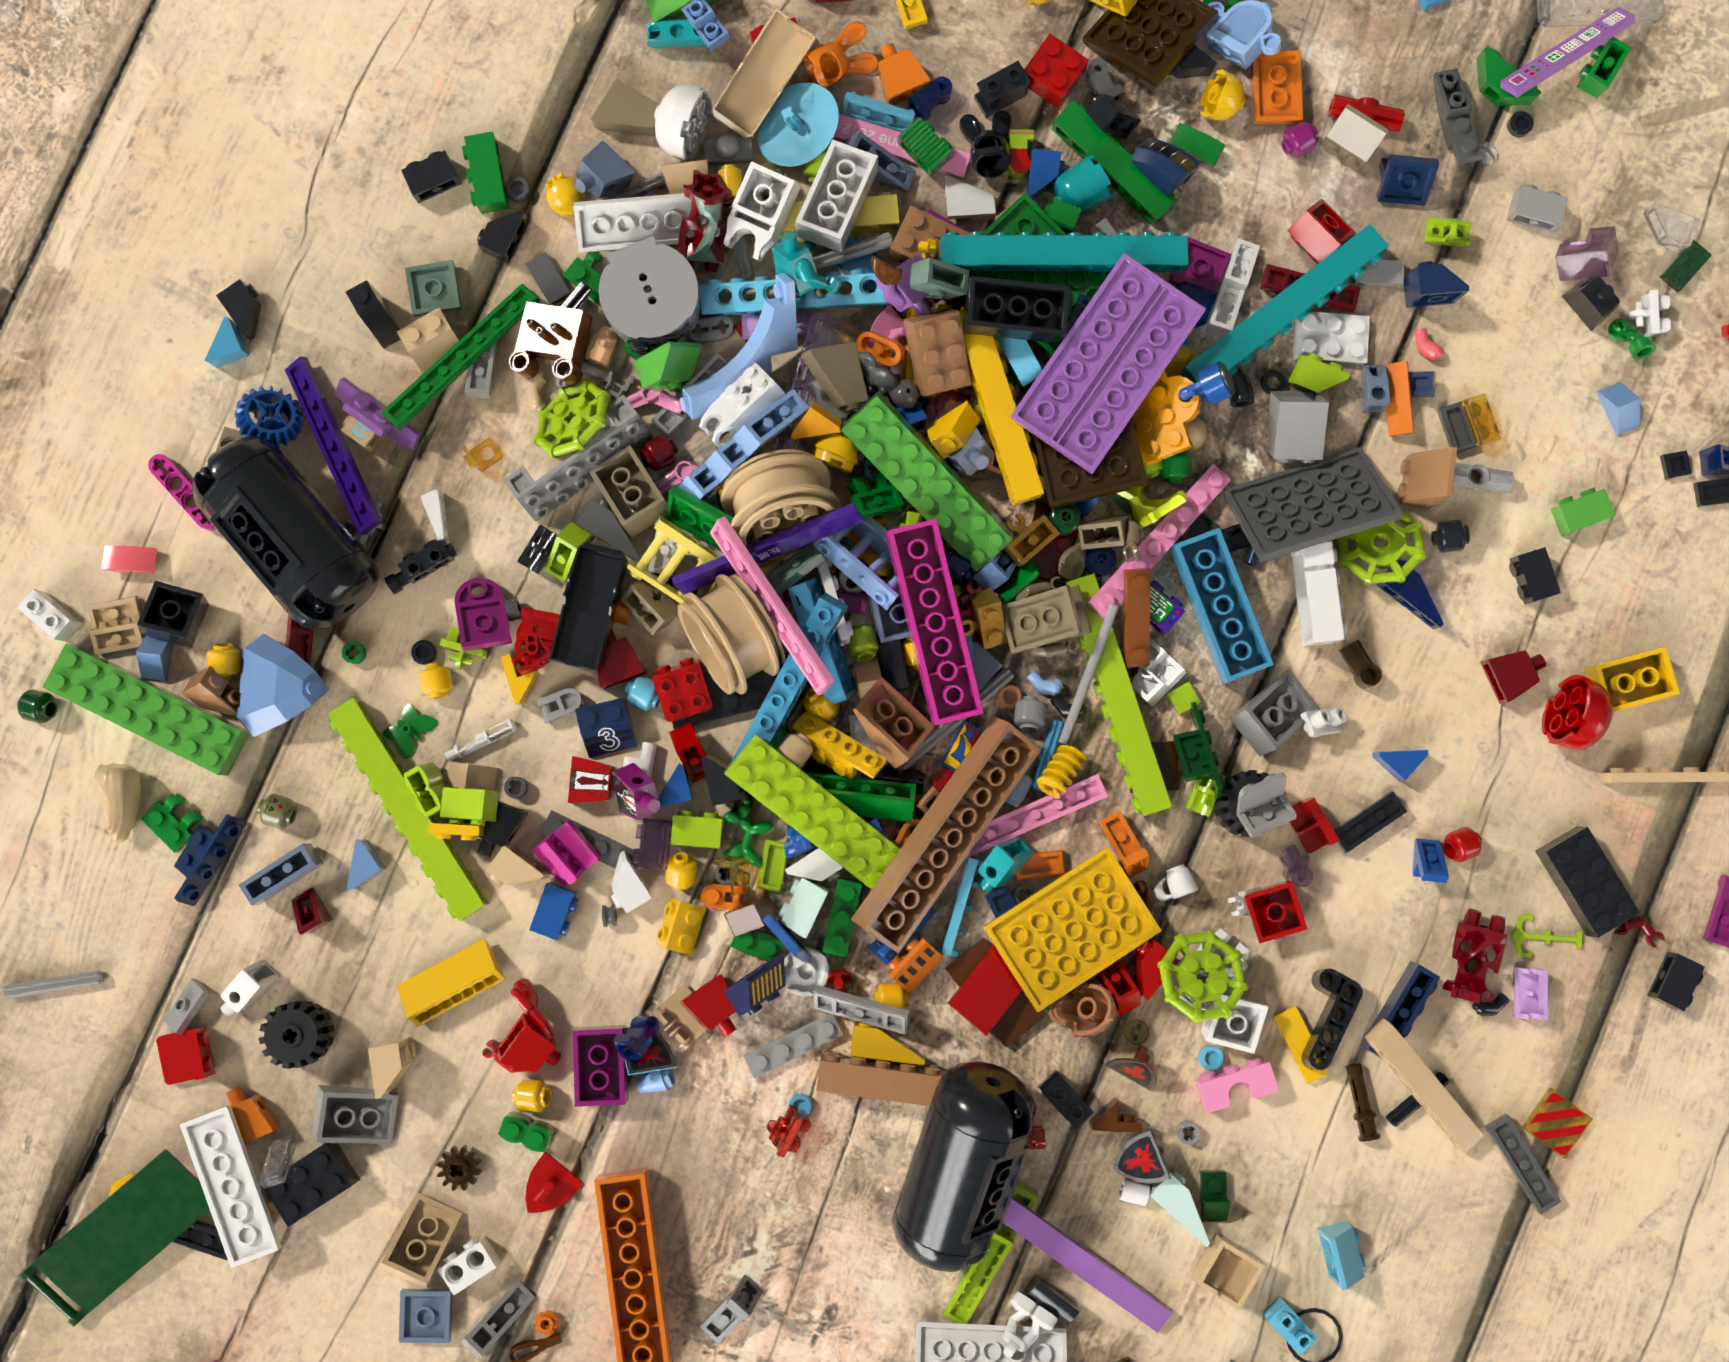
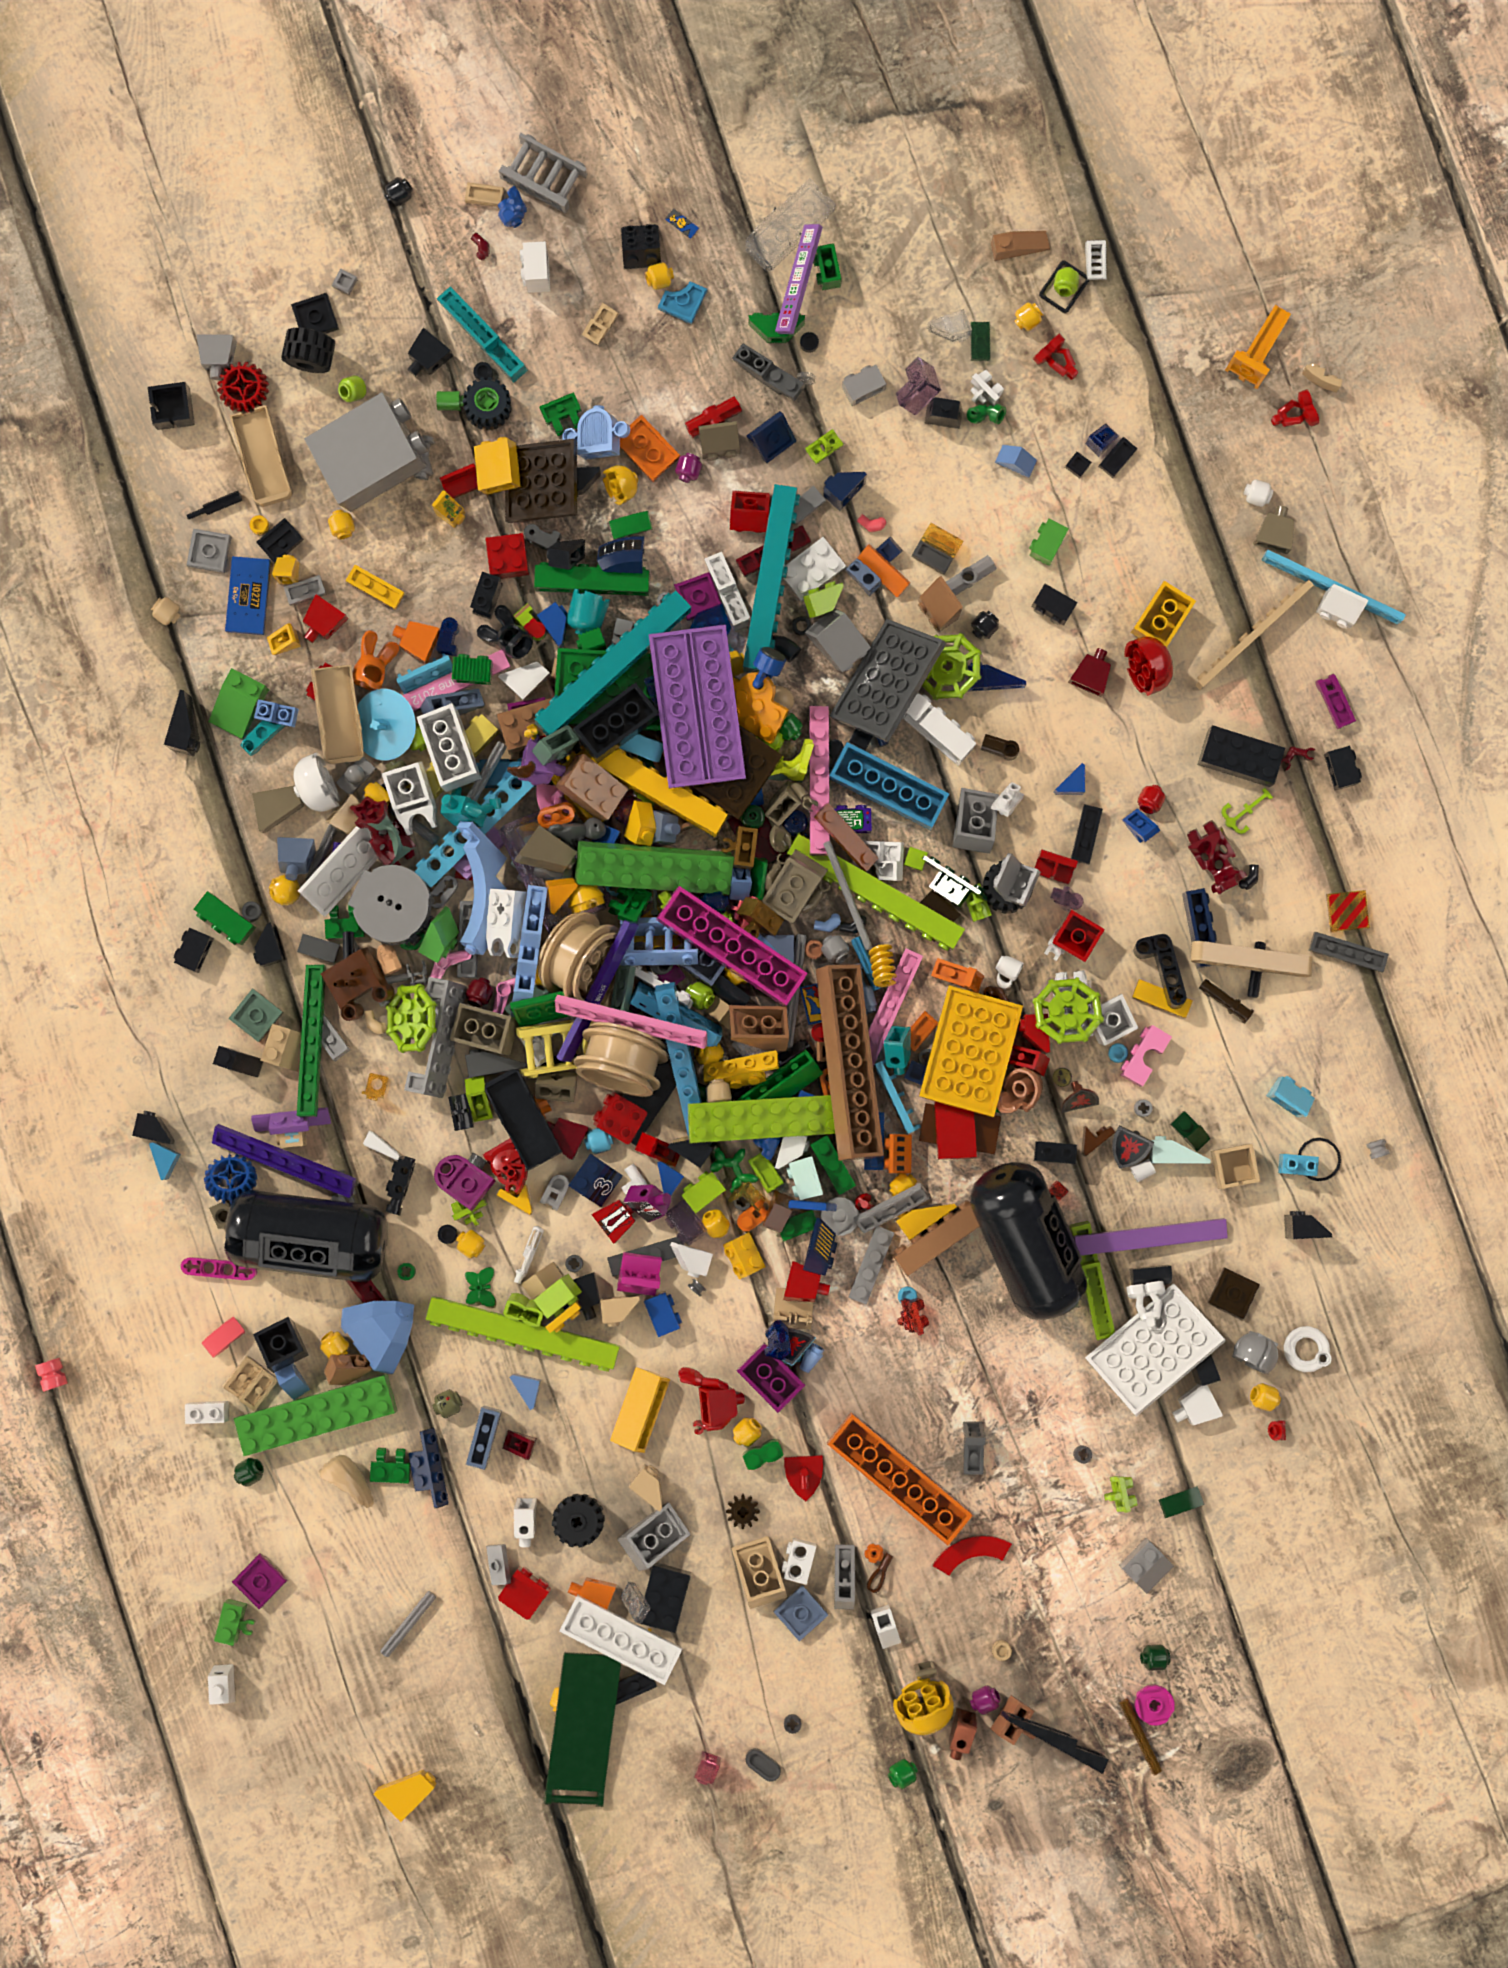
camera: 40 degrees left, 0 degrees up
(1530, 993) = (1266, 850): lavender hinge -> none

